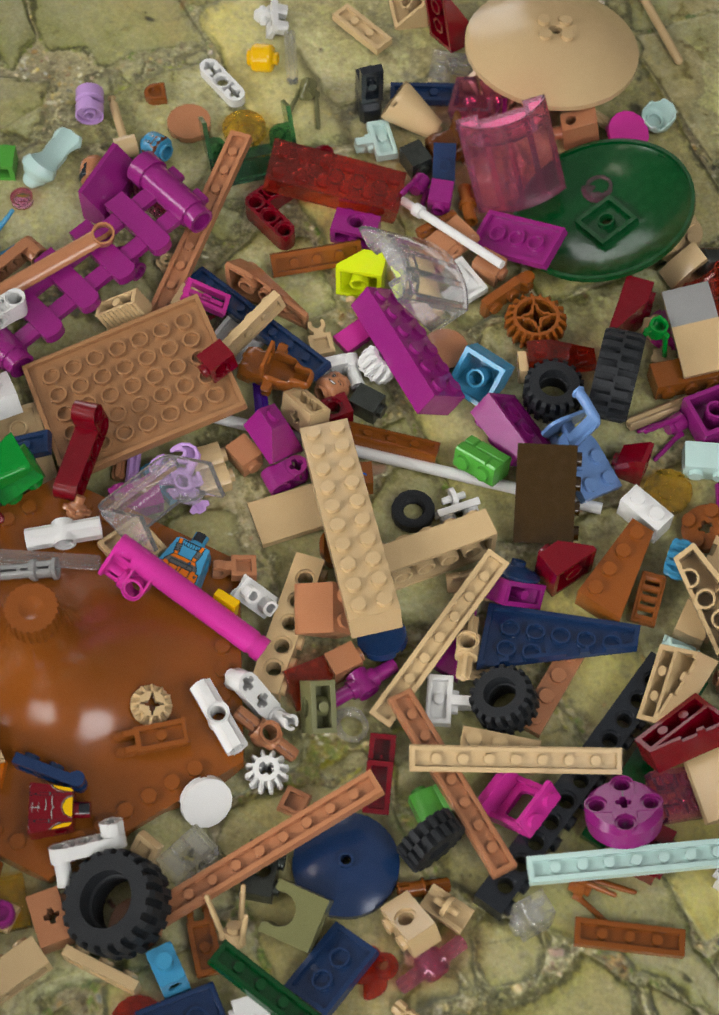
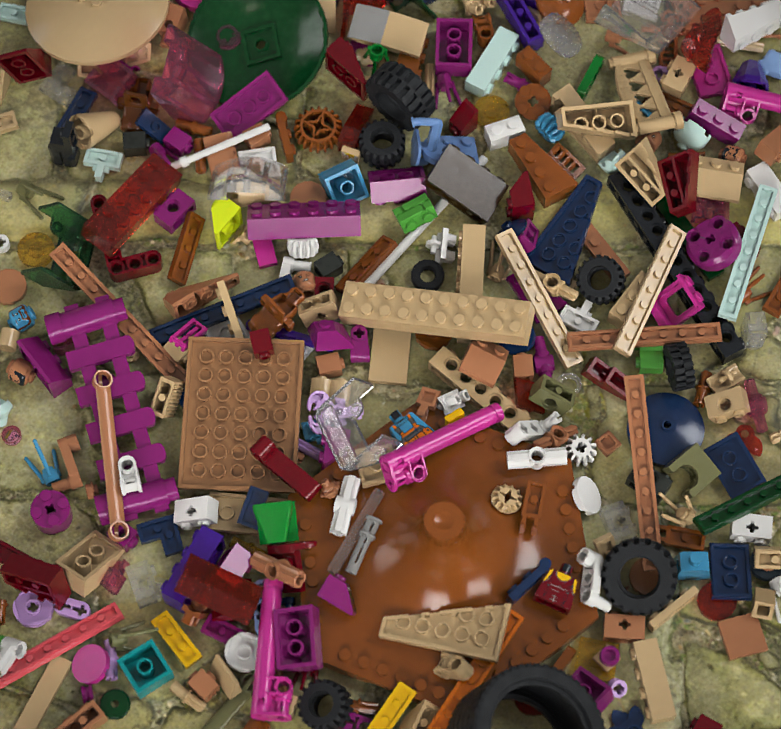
camera: 65 degrees left, 5 degrees up
(321, 340) = (259, 276): tan plate -> none

